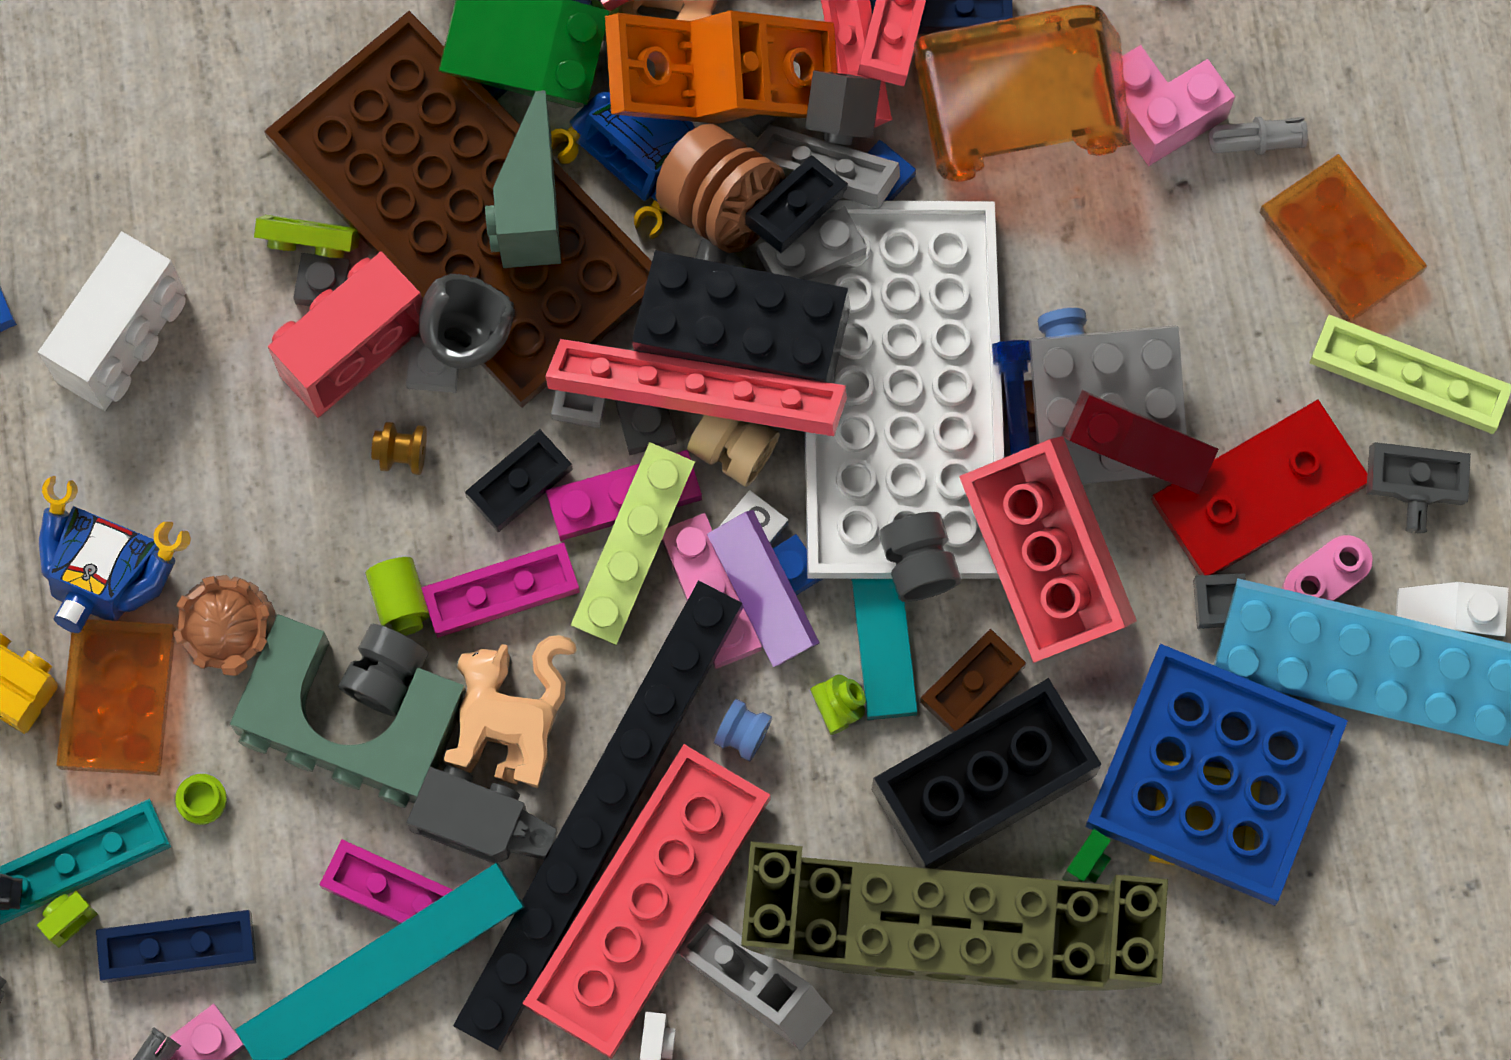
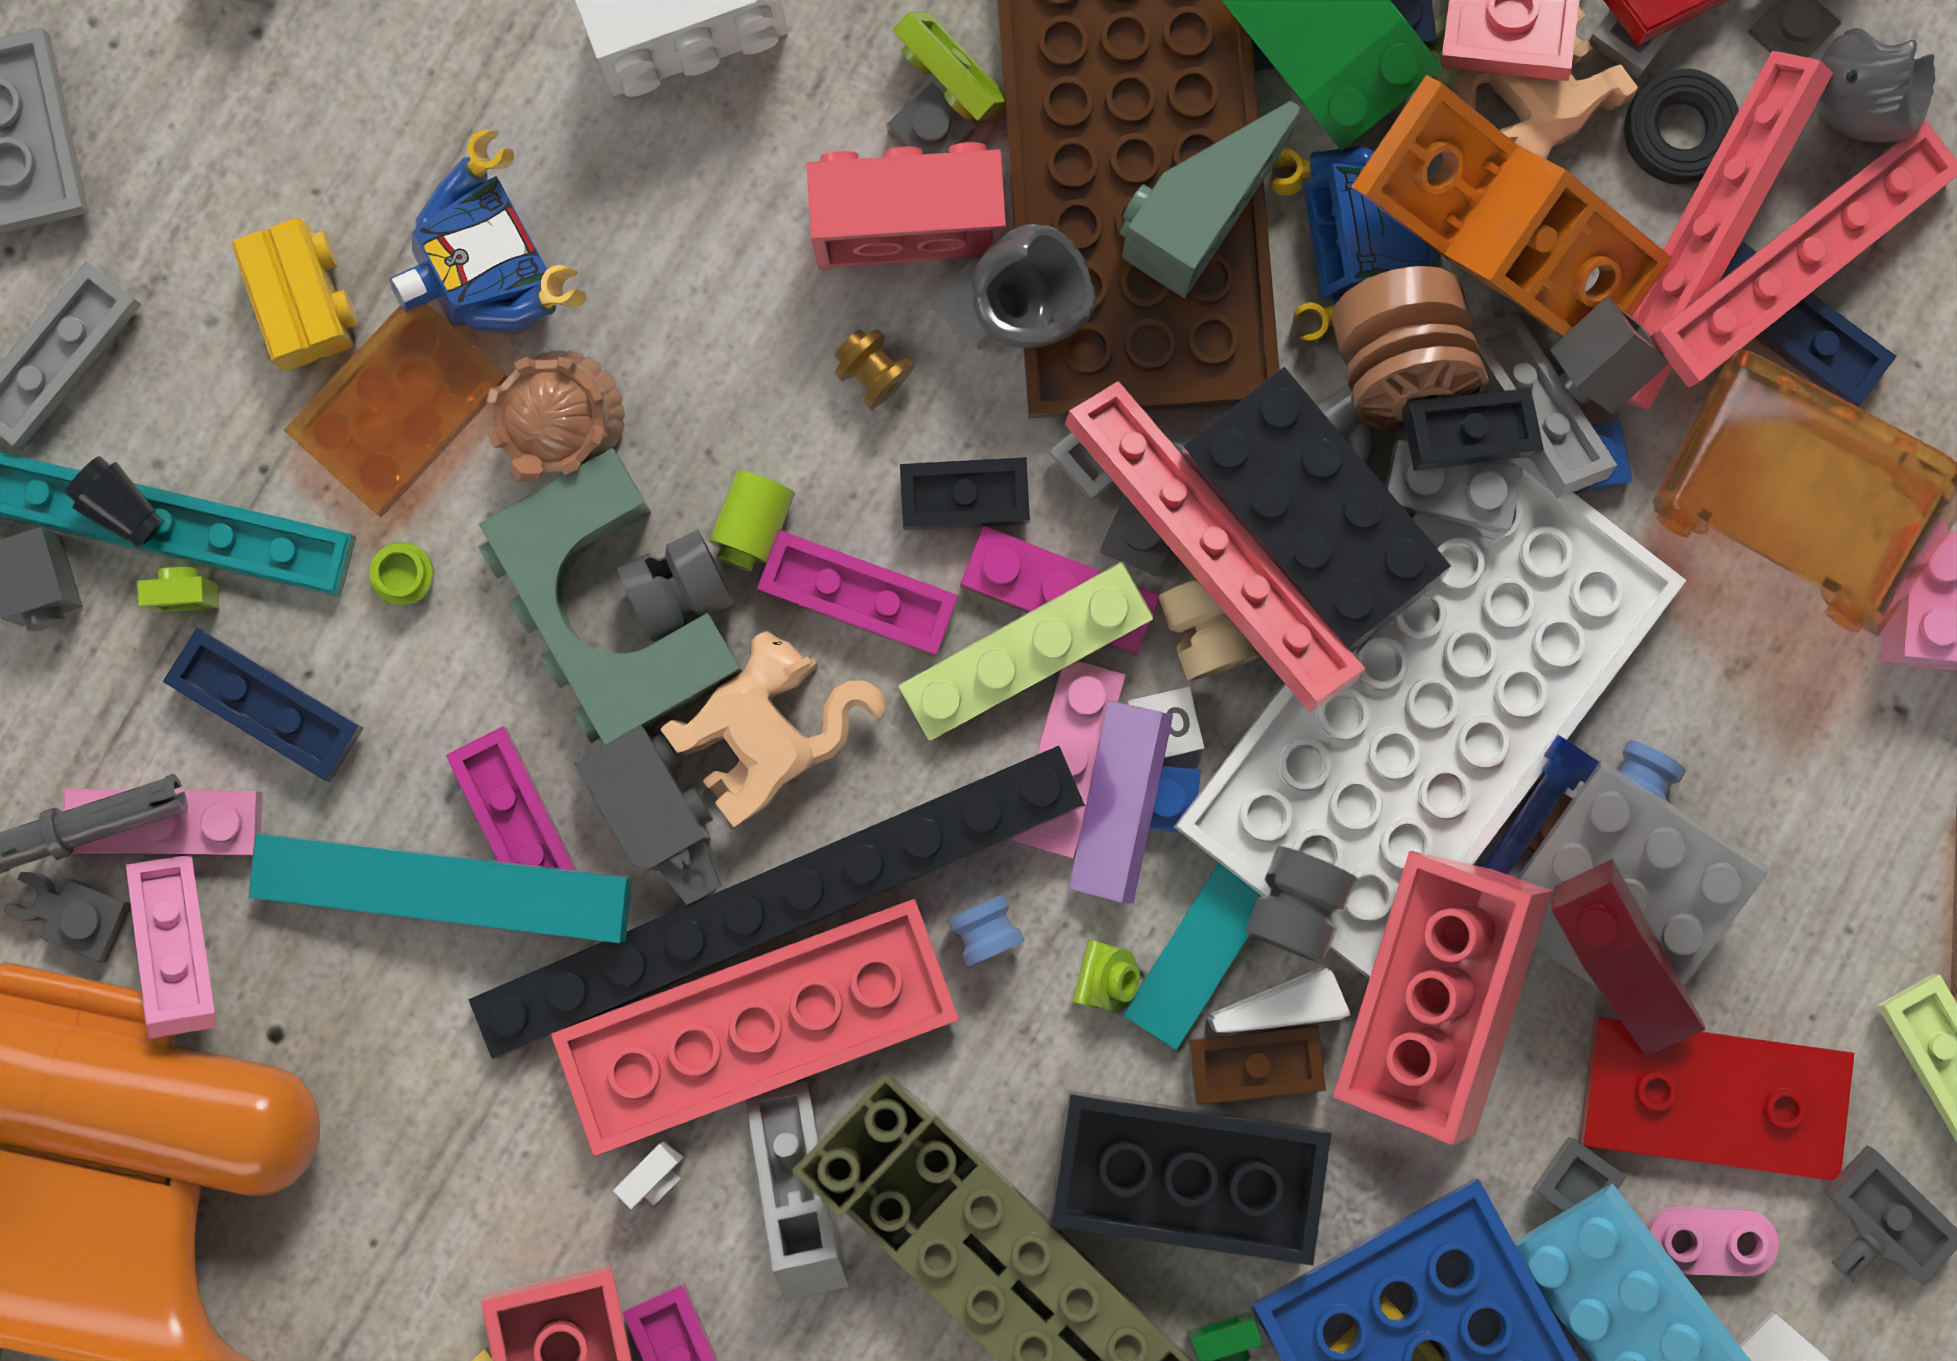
camera: 40 degrees right, 10 degrees up
(969, 621) = (1294, 1002): none -> white slope

